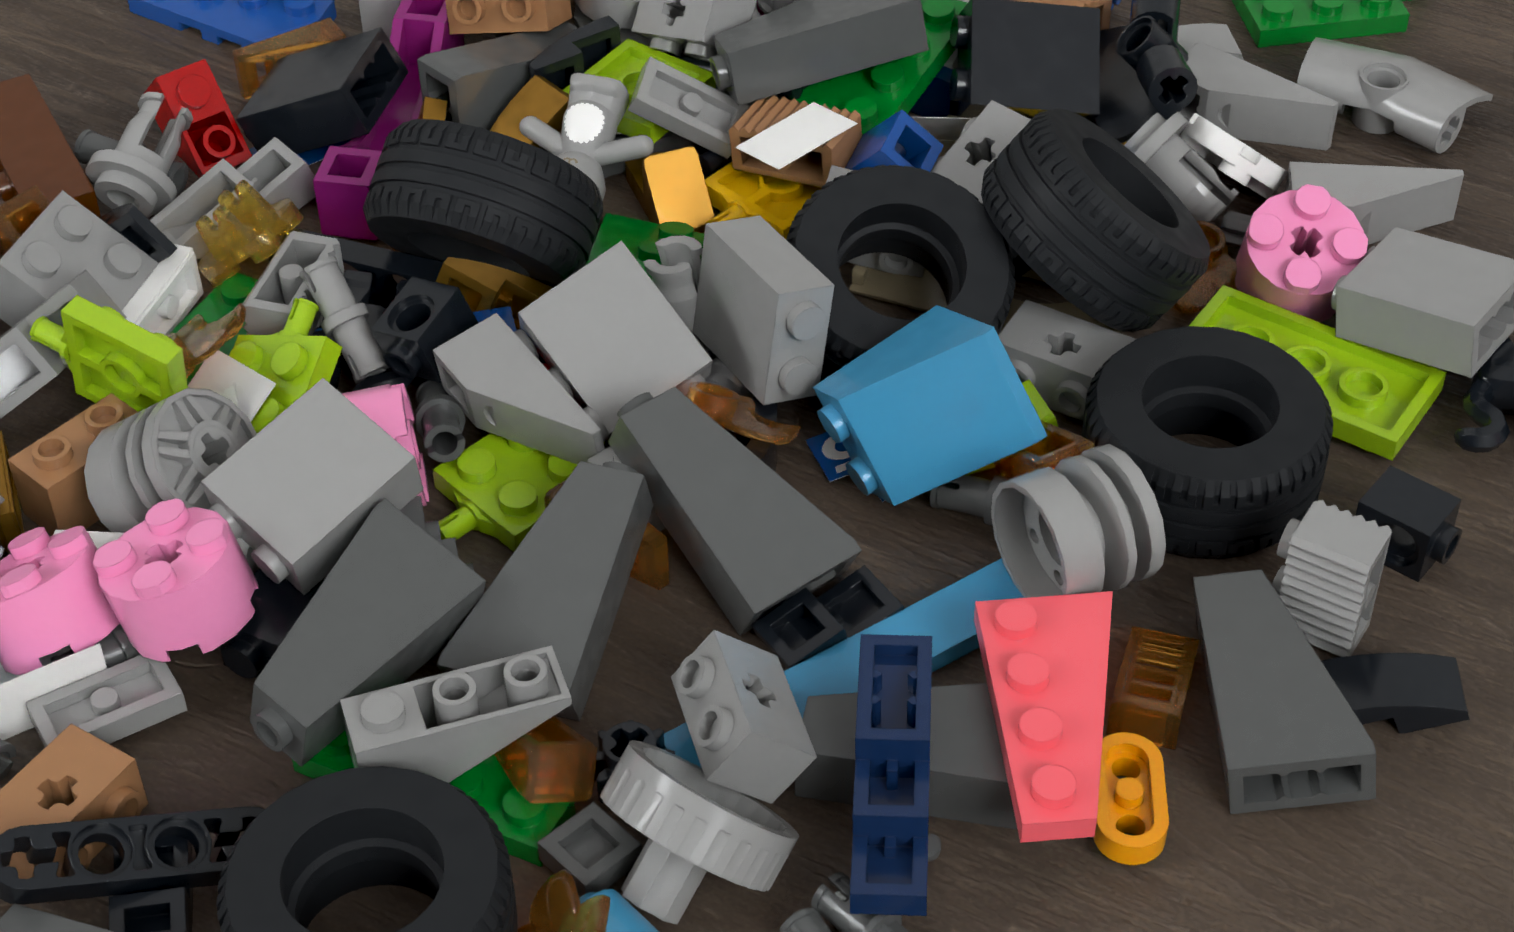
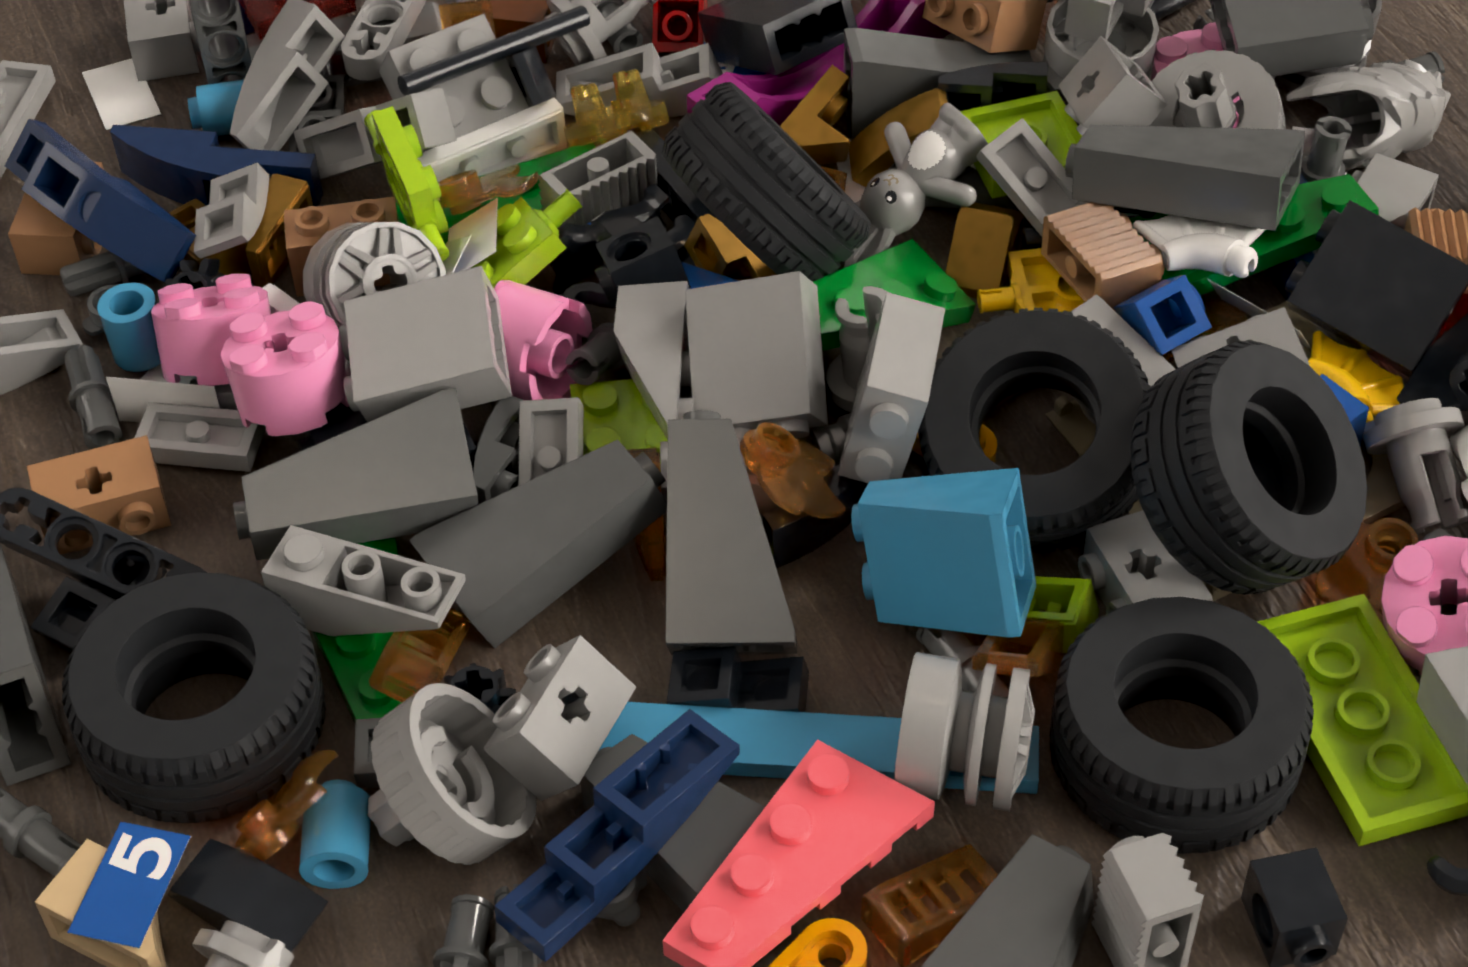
camera: 40 degrees right, 5 degrees up
(99, 220) = (493, 51): none -> black bar
(344, 318) = (597, 218): light grey pin -> none
(479, 519) = (549, 435): none -> light grey plate
(796, 135) = (1083, 251): white sticker -> none
(876, 89) = (1202, 244): none -> white arm

